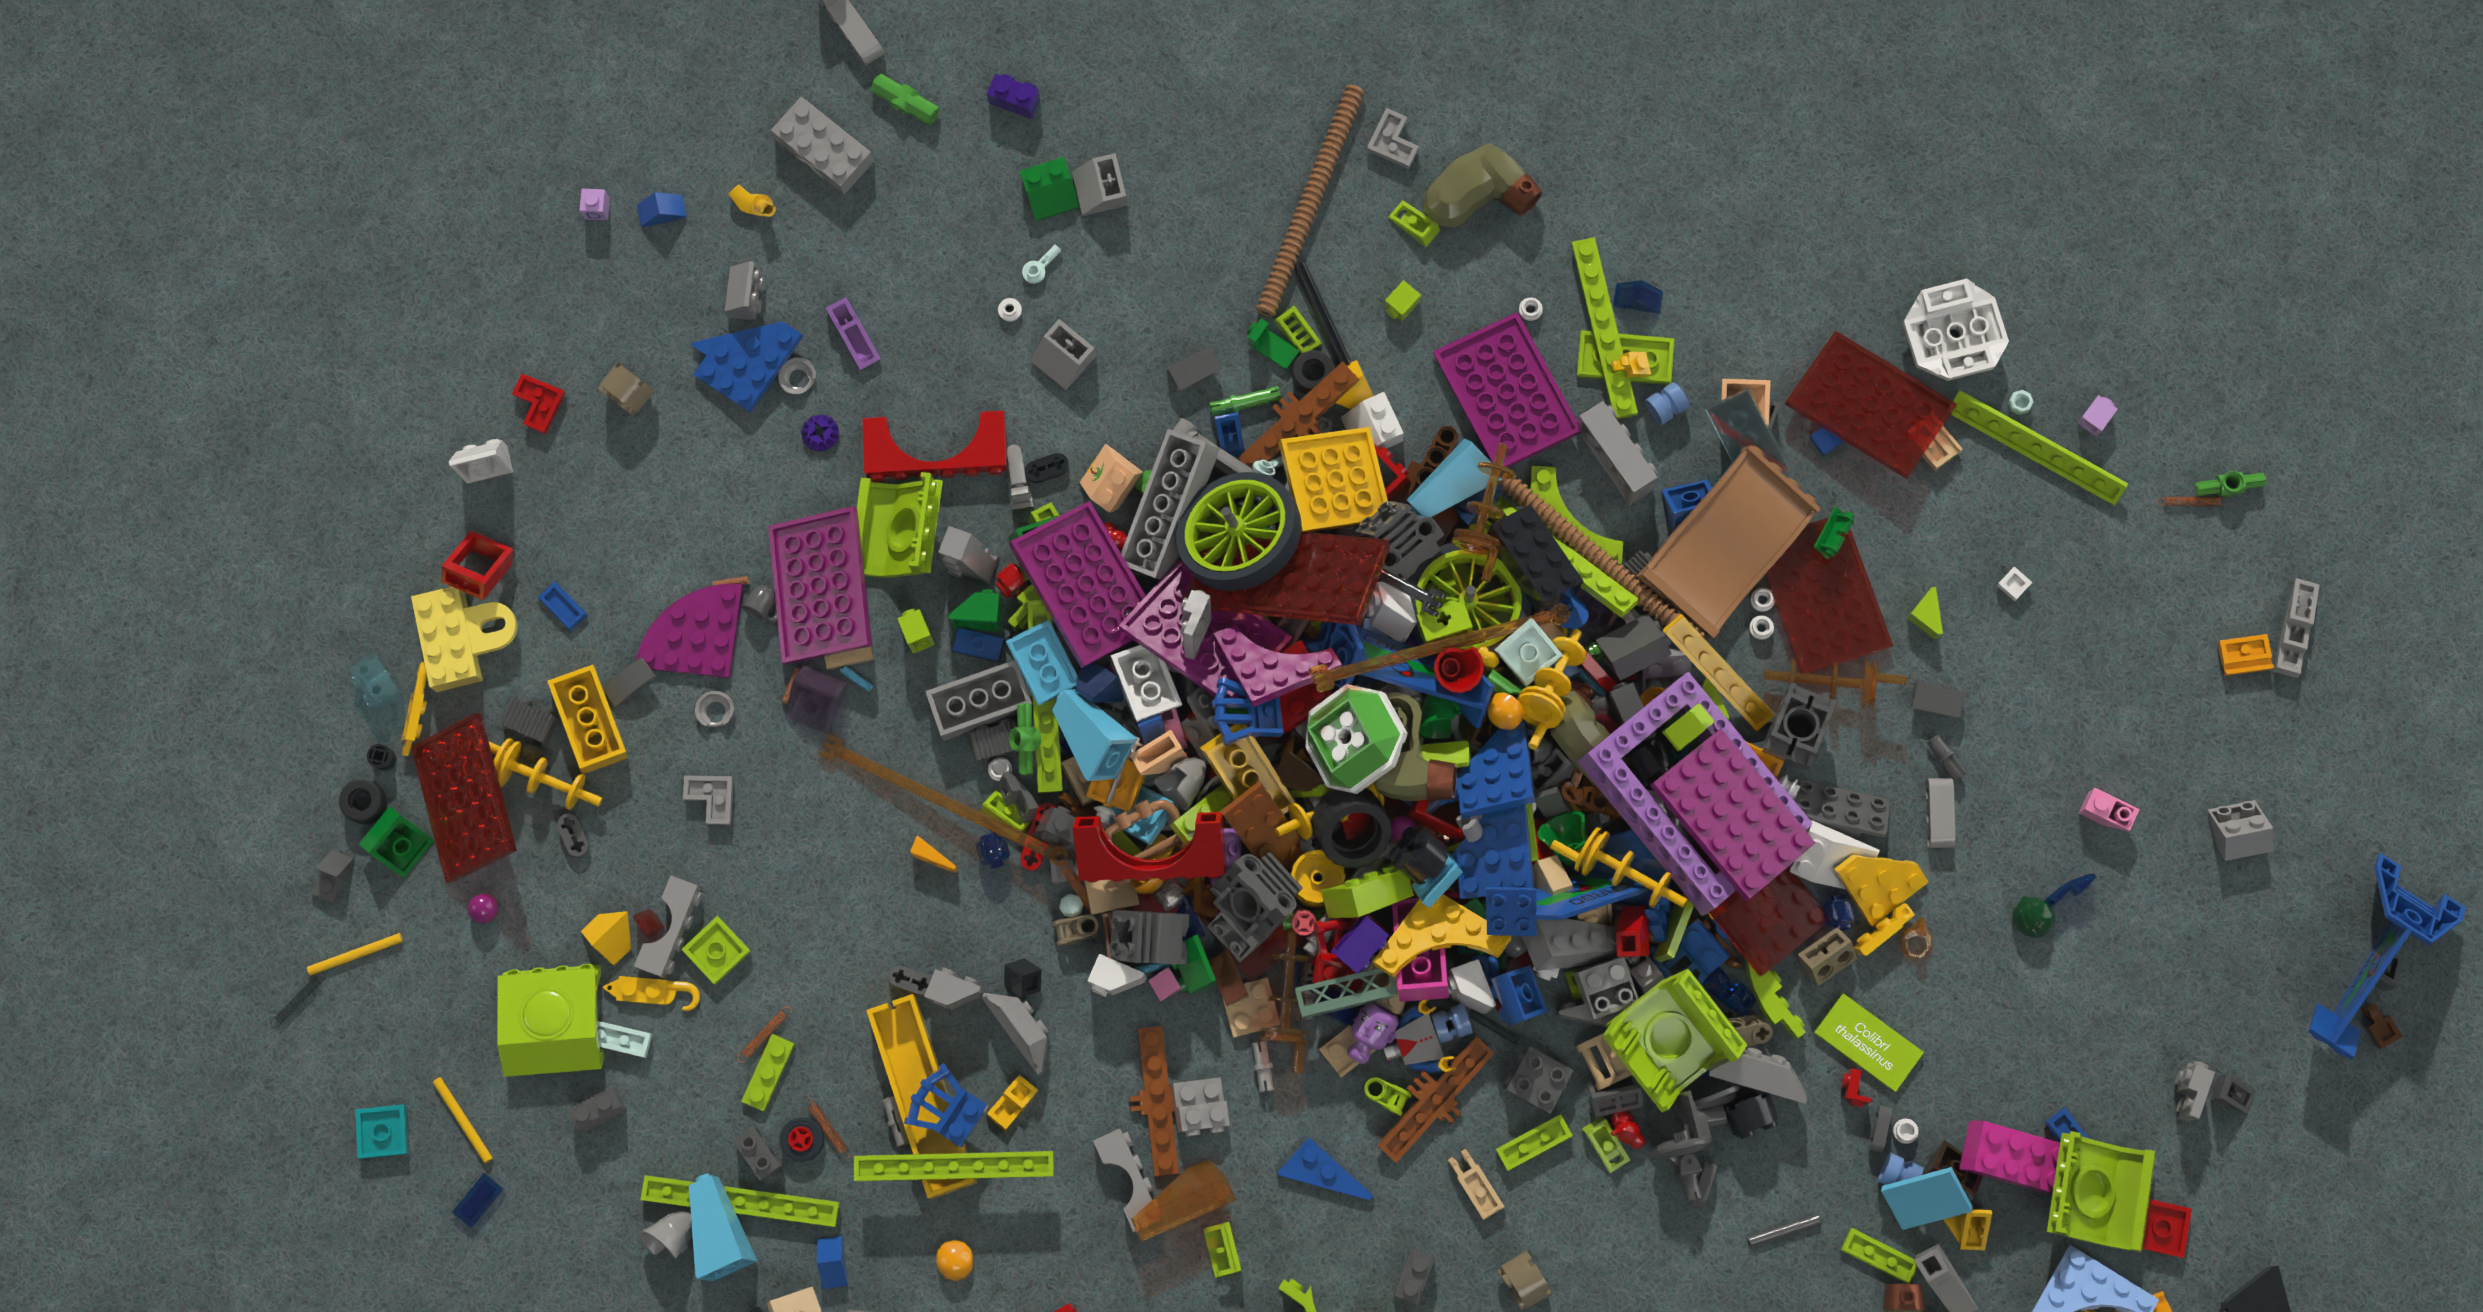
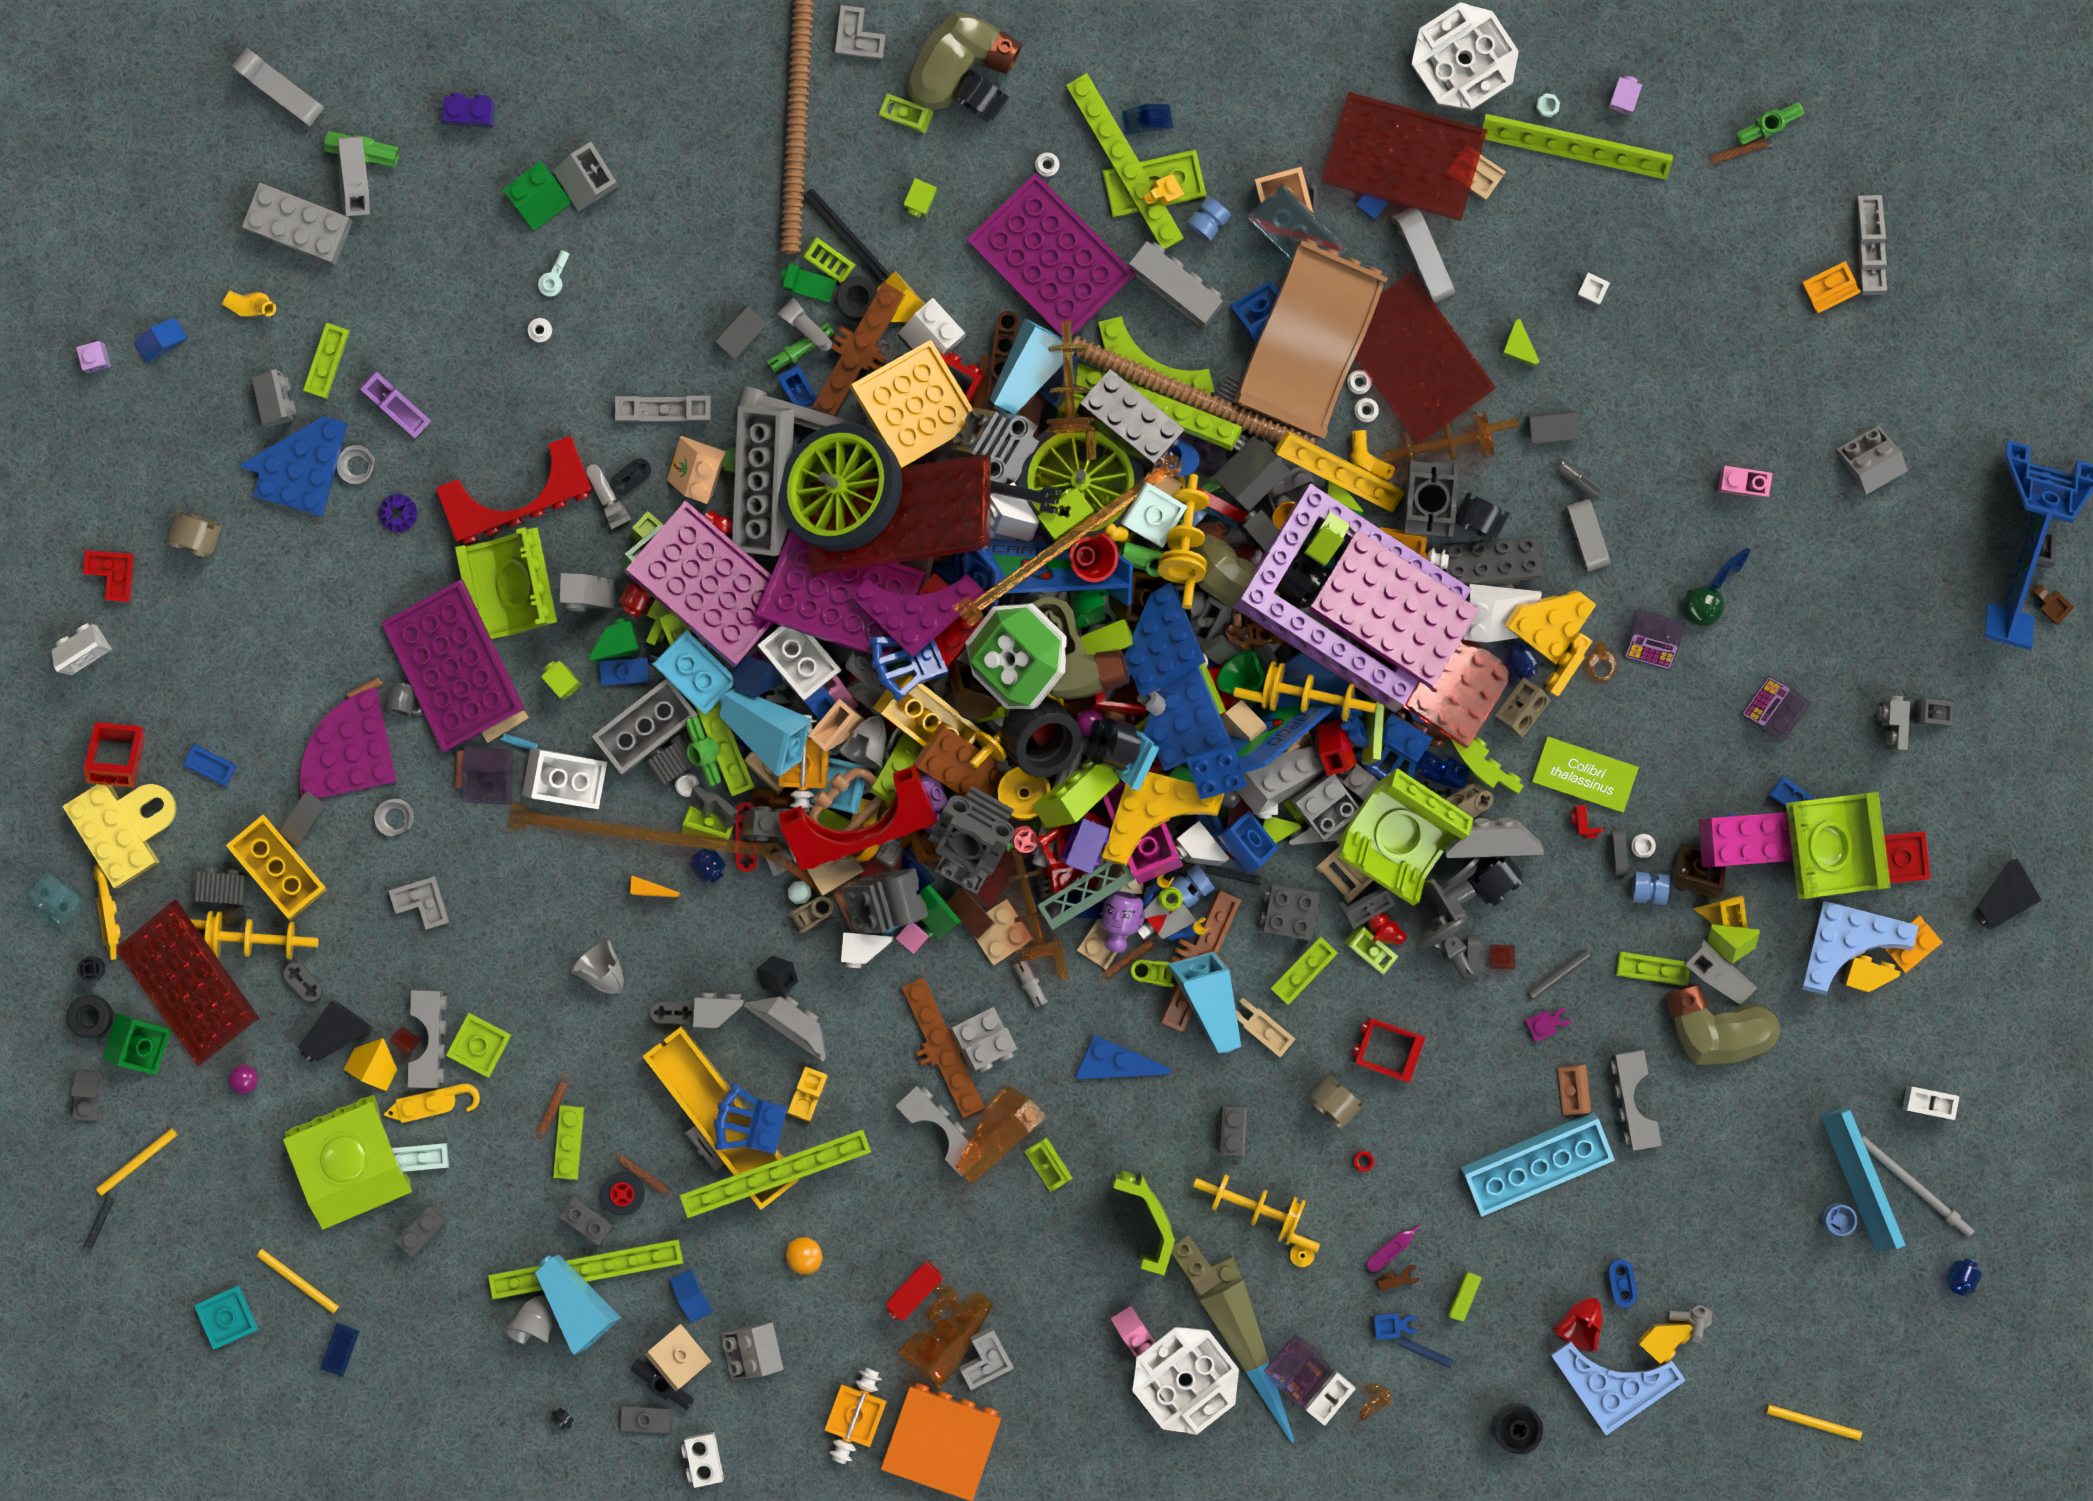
camera: 25 degrees left, 10 degrees up
(583, 892) = (332, 1032): none -> black slope
(804, 275) = (326, 360): none -> lime plate
(857, 915) = (600, 968): none -> light grey helmet
(886, 725) = (564, 778): none -> white slope
(887, 117) = (353, 176): none -> light grey slope
(1063, 354) = (608, 360): light grey slope -> none
(1097, 416) = (662, 409): none -> light grey slope
(1195, 621) = (829, 588): light grey plate -> none
(1251, 372) = (796, 316): none -> light grey piece
(1266, 467) = (843, 412): light aqua plate -> none
(1365, 1076) = (1128, 958): none -> orange piece
(1418, 1029) = (1174, 905): none -> lime plate
(1434, 1136) = (1210, 995): none -> medium azure slope
(1489, 226) = (981, 95): none -> black brick
(1505, 711) = (1150, 581): light orange hair -> none
(1554, 995) = (1279, 828): none -> lime slope
(1614, 1263) = (1412, 1057): none -> red window
(1733, 1194) = (1502, 956): none -> clear red slope
(1747, 673) = (1365, 460): none -> yellow arm
(1753, 1276) = (1543, 1025): none -> magenta plate
(1830, 539) = (1405, 305): green hinge -> none
(1842, 760) = (1482, 516): none -> black brick
(1862, 499) = (1424, 254): none -> light grey beam
(1926, 1198) = (1680, 904): medium azure tile -> none
(1967, 1254) = (1732, 941): none -> lime slope
(1976, 933) = (1654, 639): none -> clear purple slope
(2076, 1039) = (1776, 708): none -> clear purple slope

